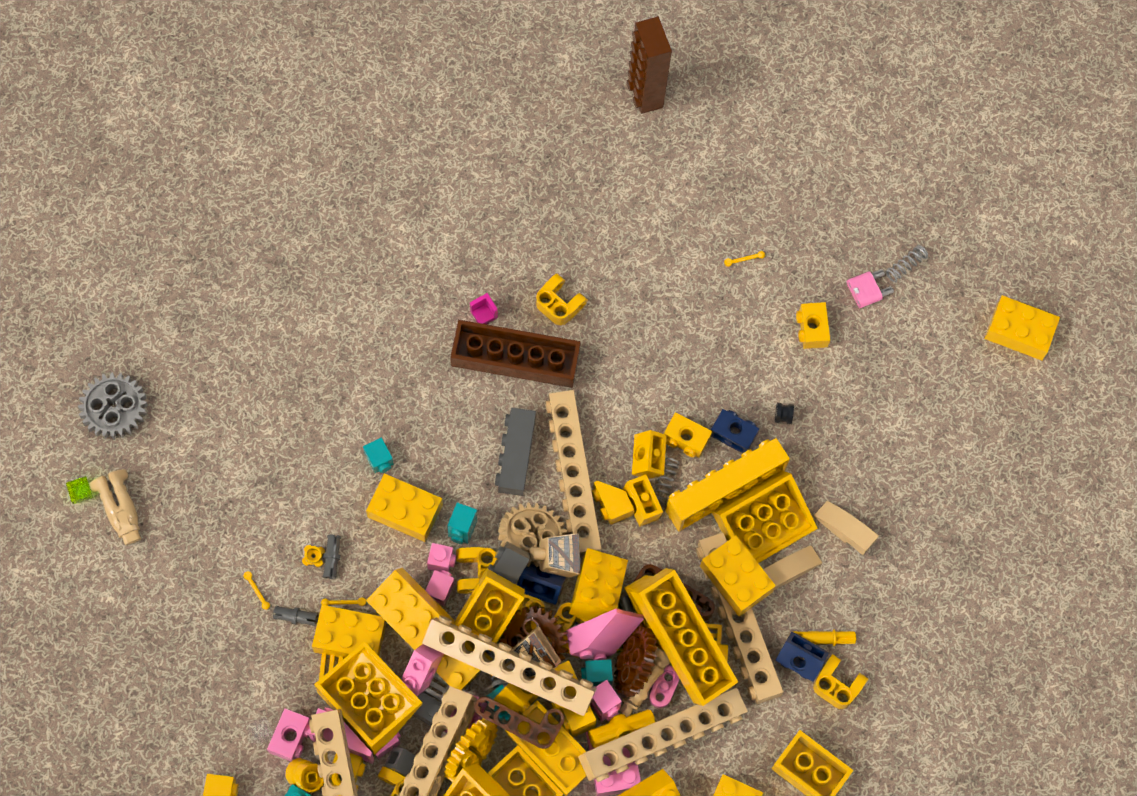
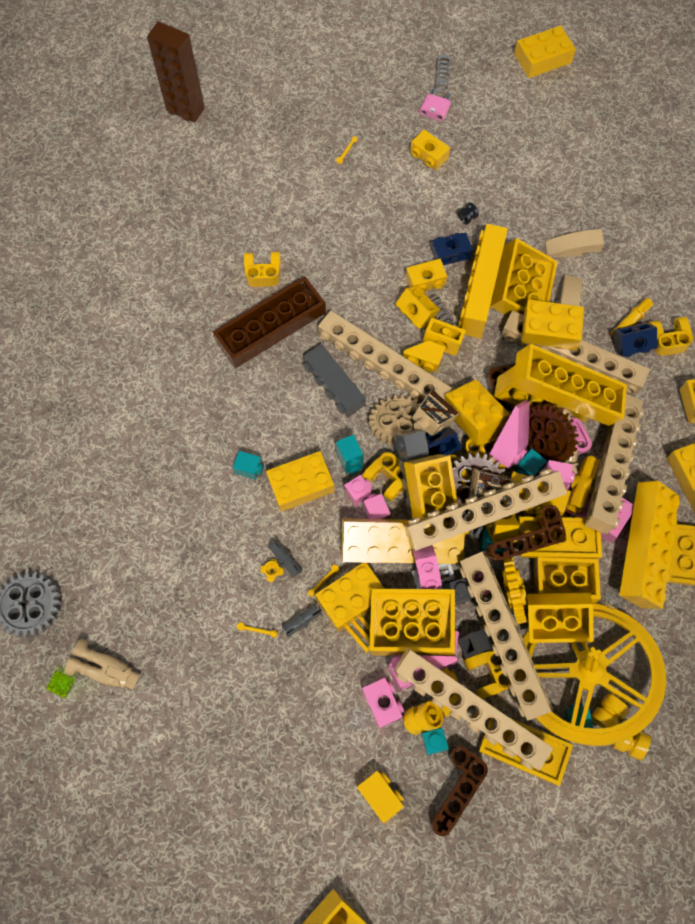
camera: 40 degrees left, 0 degrees up
(483, 309) = (220, 313): dark pink panel -> none

